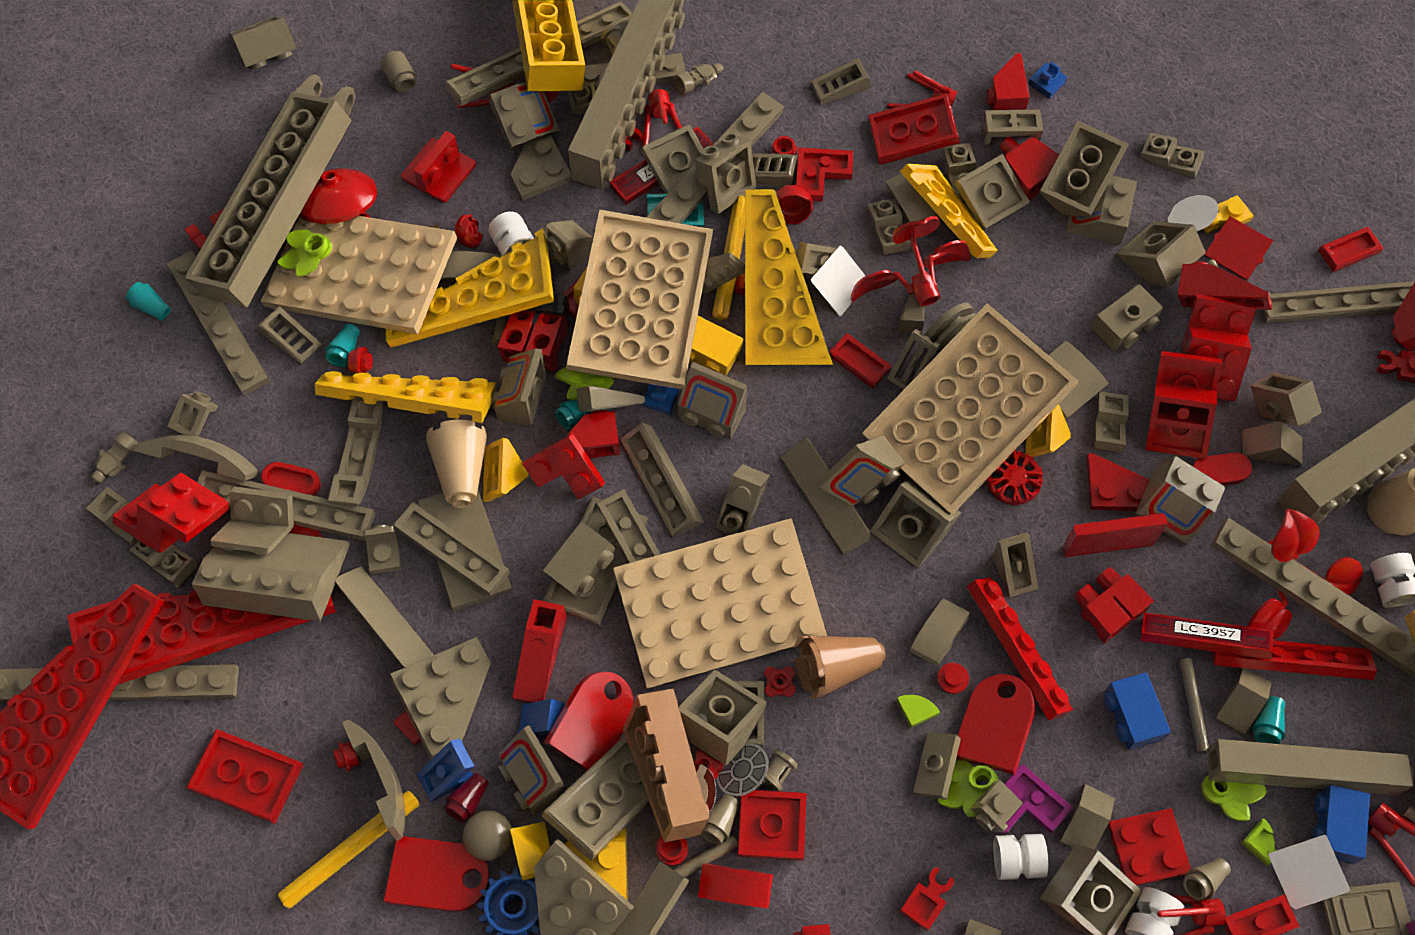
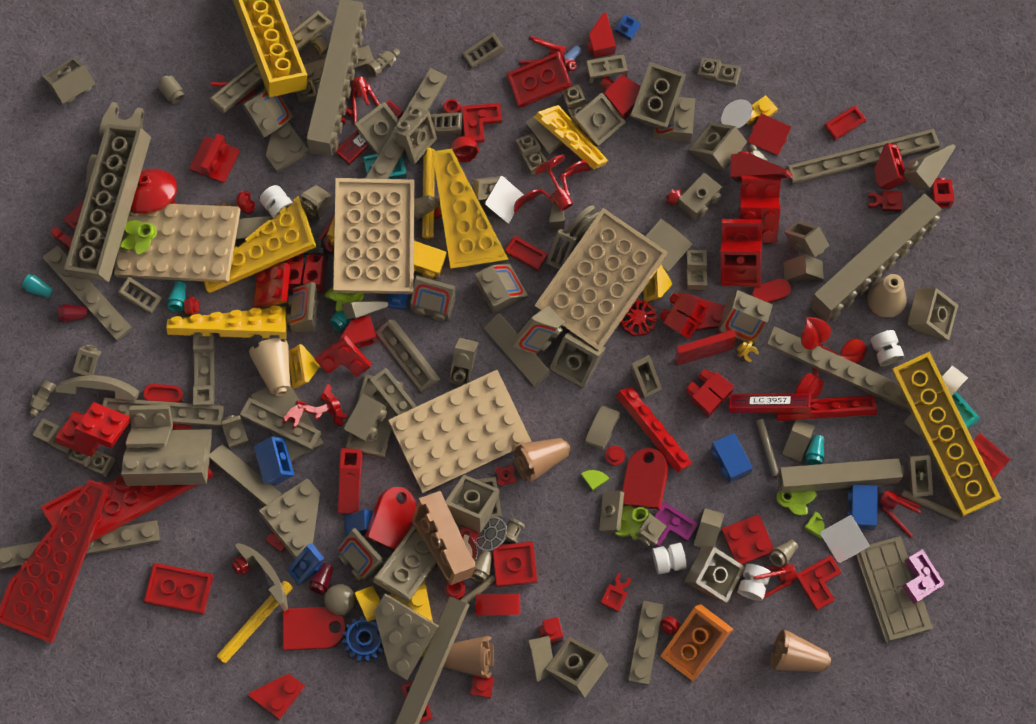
camera: 10 degrees left, 5 degrees up
(185, 344) = (71, 313): none -> dark red cone
(430, 602) = (274, 460): none -> blue brick
(480, 349) = (272, 286): none -> red plate
(534, 534) = (332, 406): none -> red piece
(814, 401) = (500, 286): none -> dark tan slope
(961, 107) = (569, 58): none -> arm
(1086, 480) = (683, 305): none -> red hips
(1087, 313) = (673, 197): none -> red plate
(1173, 547) = (745, 348): none -> yellow plate

